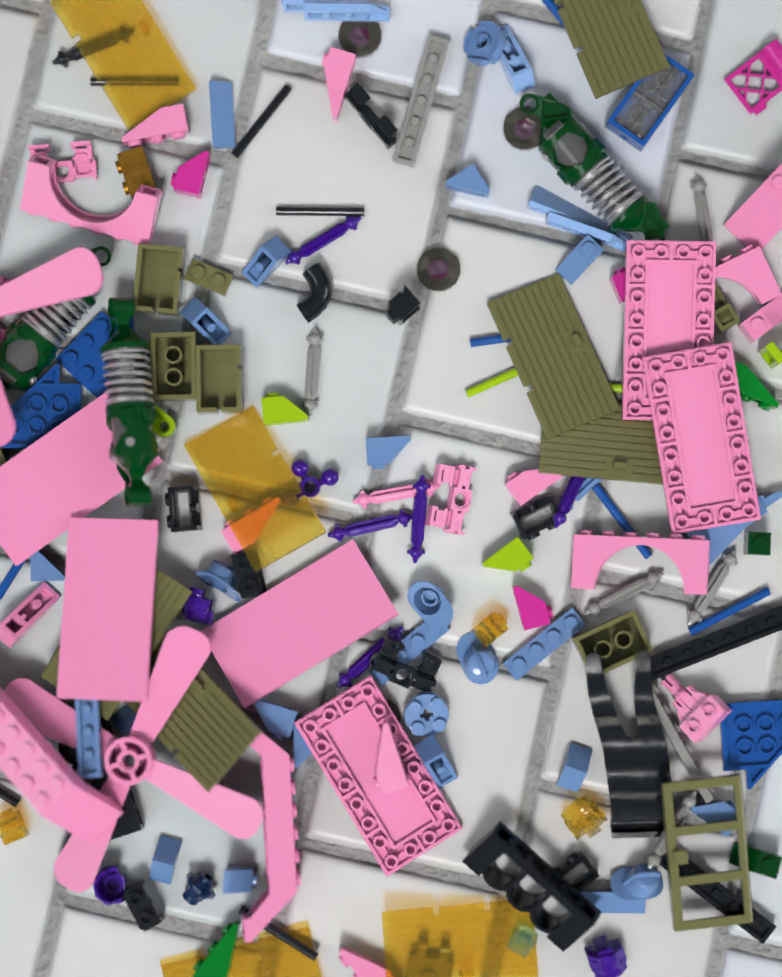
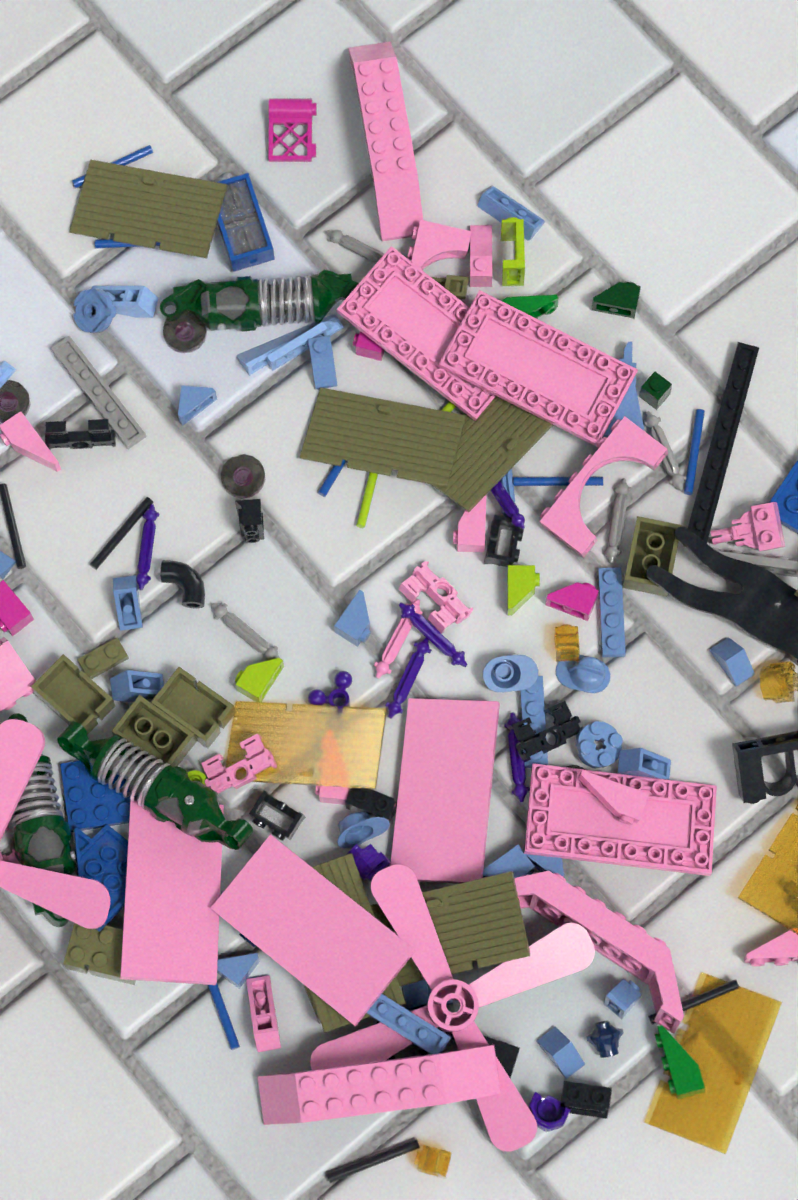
camera: 50 degrees left, 15 degrees down
(210, 462) = (257, 762): none -> bright pink piece

